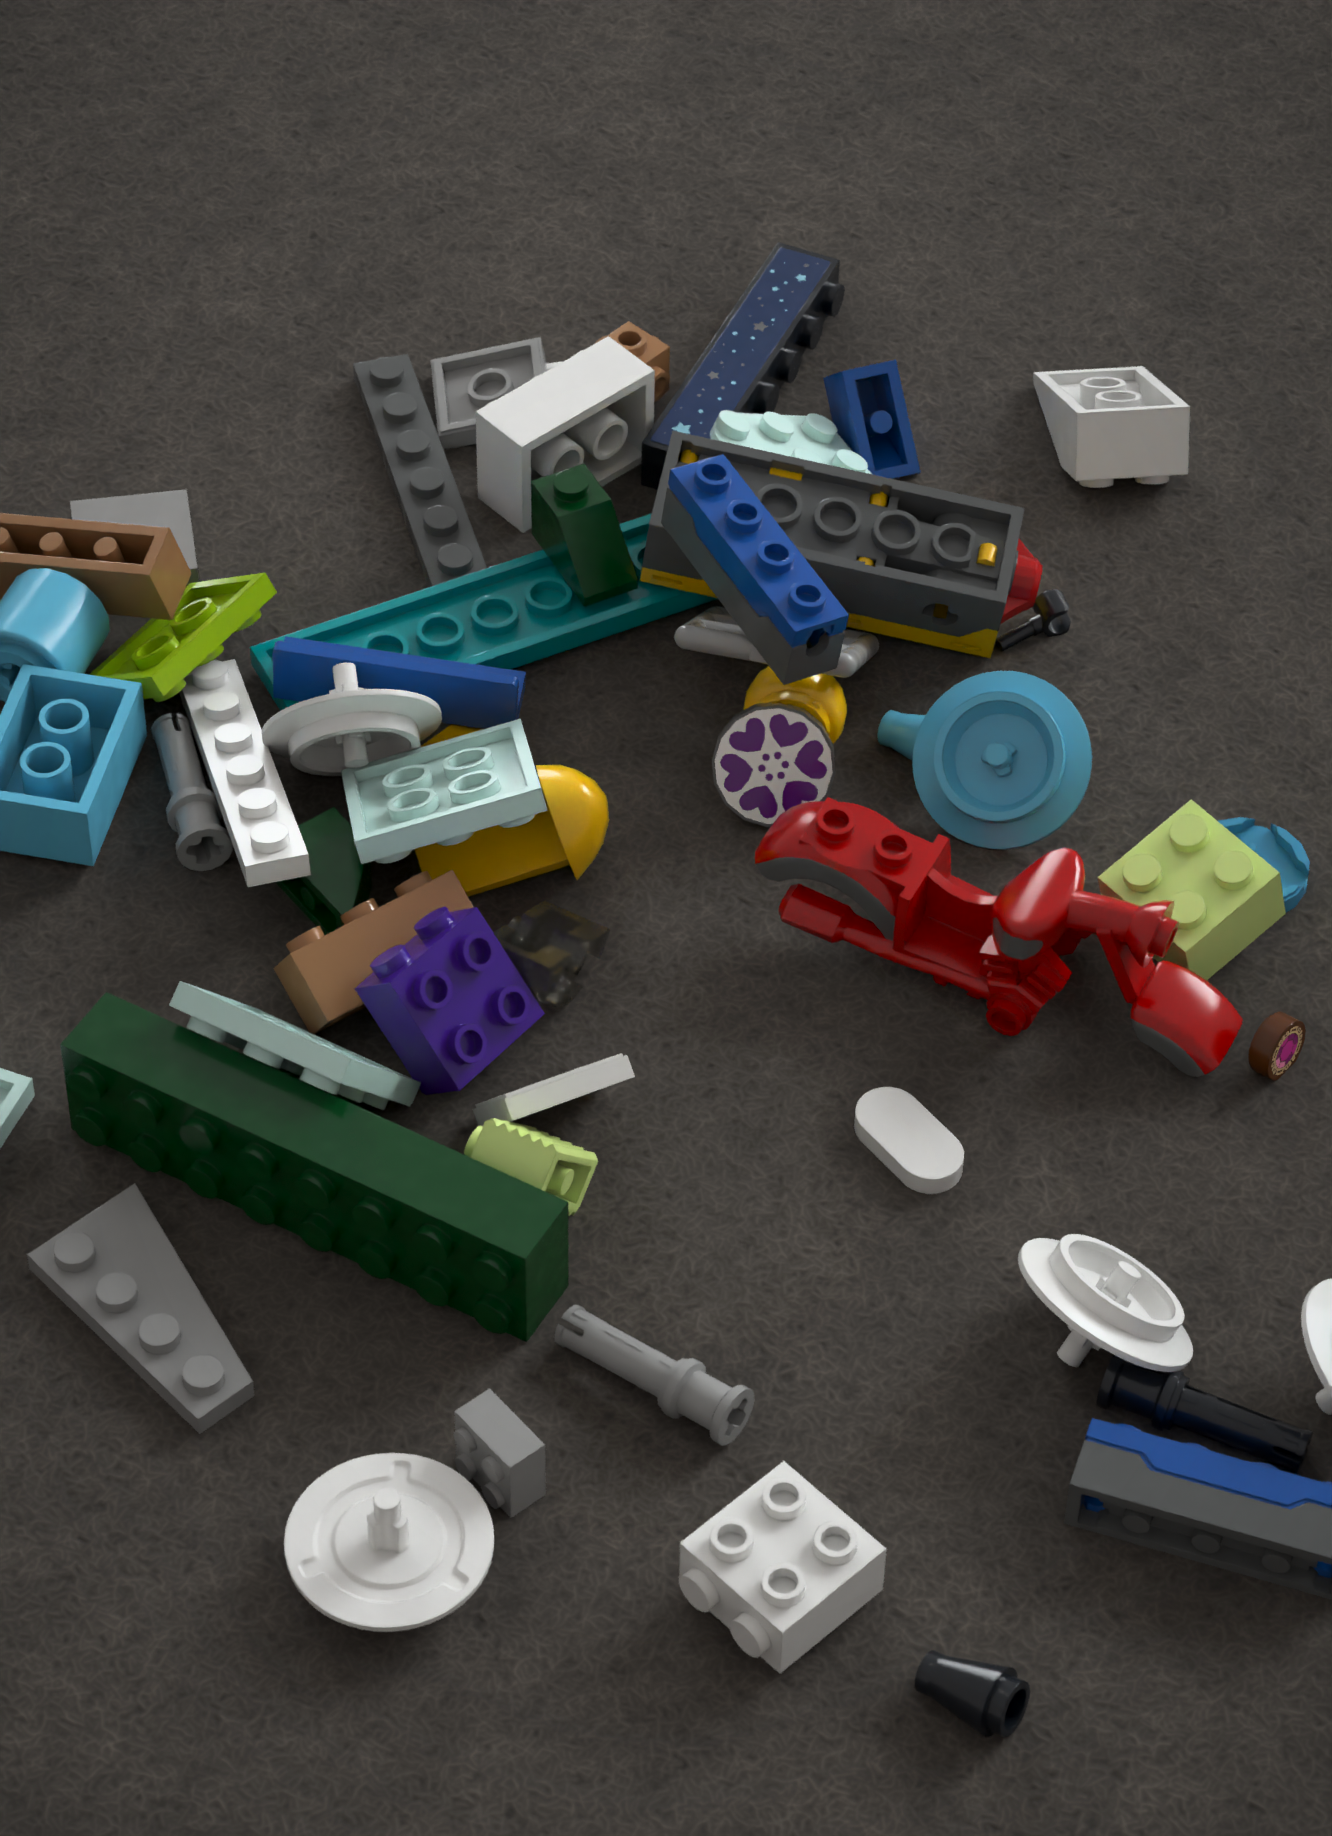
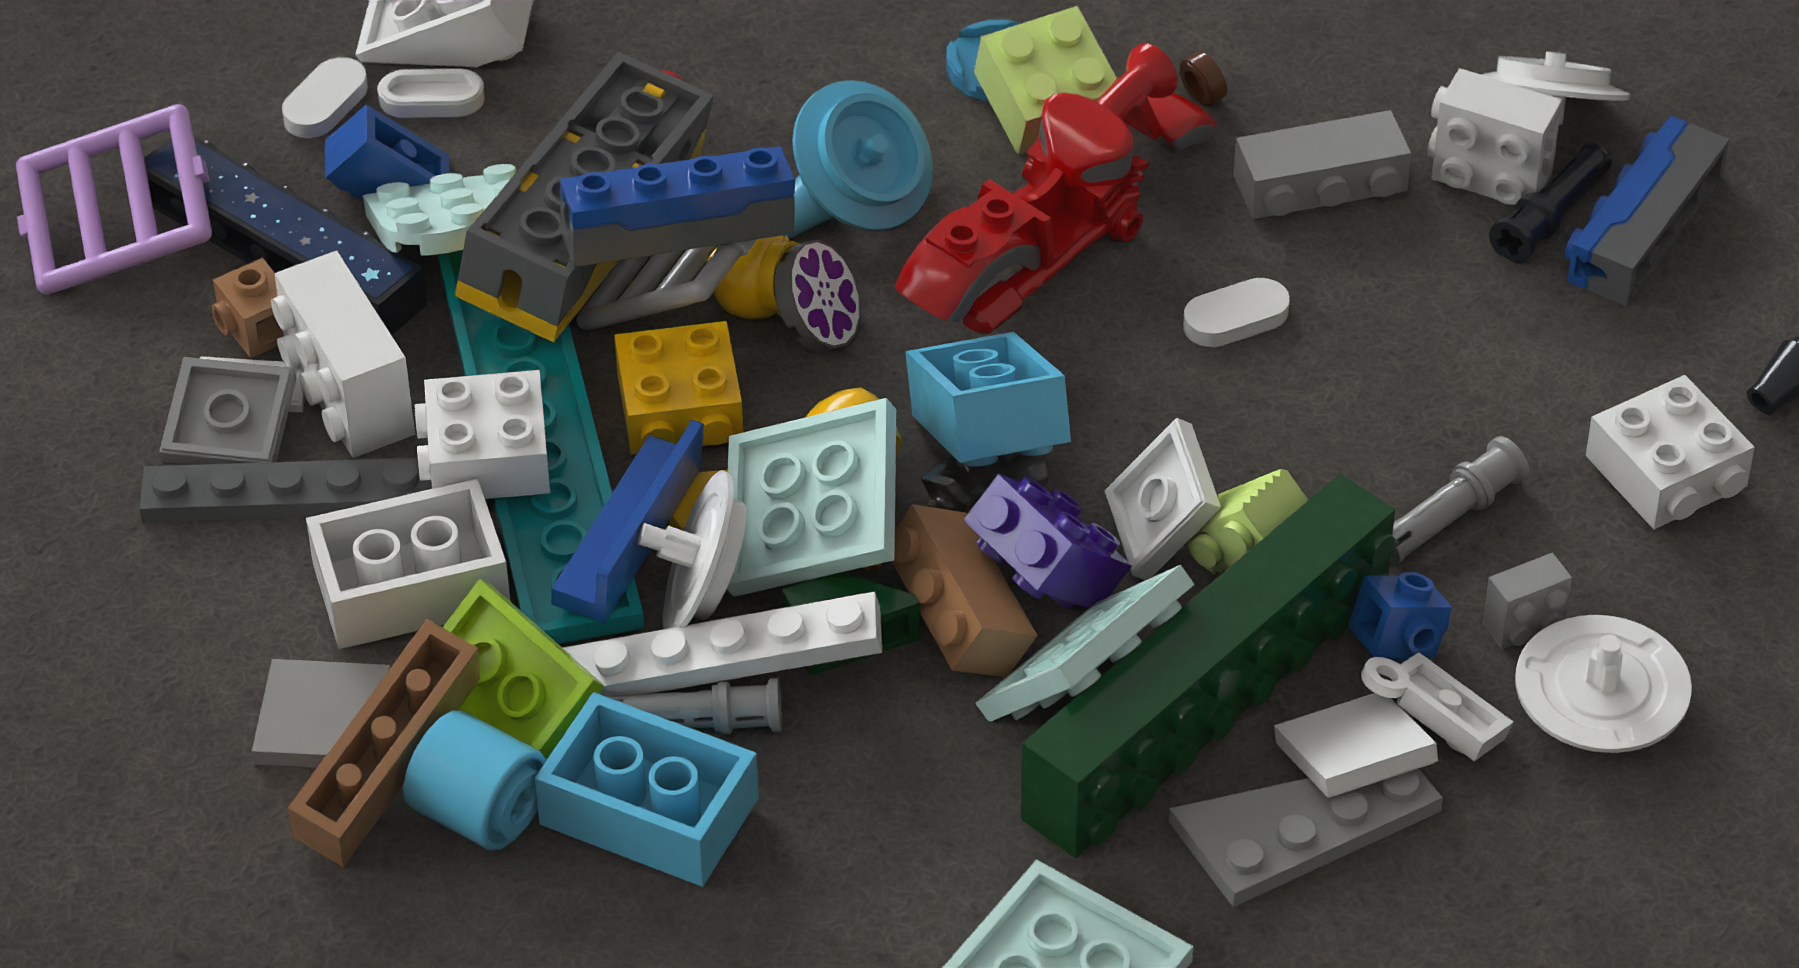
camera: 75 degrees left, 0 degrees up
(251, 1325) = (1355, 744): none -> white tile
(310, 537) = (404, 560): none -> white brick
(327, 1392) = (1439, 703): none -> white hinge
(438, 1334) = (1400, 616): none -> blue brick
(468, 545) = (484, 431): none -> white brick
(581, 534) = (493, 347): dark green slope -> none
(611, 688) = (678, 378): none -> yellow brick
(639, 909) = (988, 398): none -> medium azure brick
(763, 273) = (149, 245): none -> lavender bar
(964, 366) = (324, 97): none -> white tile
(1003, 439) = (431, 93): none -> white tile
(1107, 1302) = (1459, 212): white piece -> none
(1169, 1175) = (1322, 164): none -> light grey brick
(1250, 1314) = (1493, 137): none -> white brick

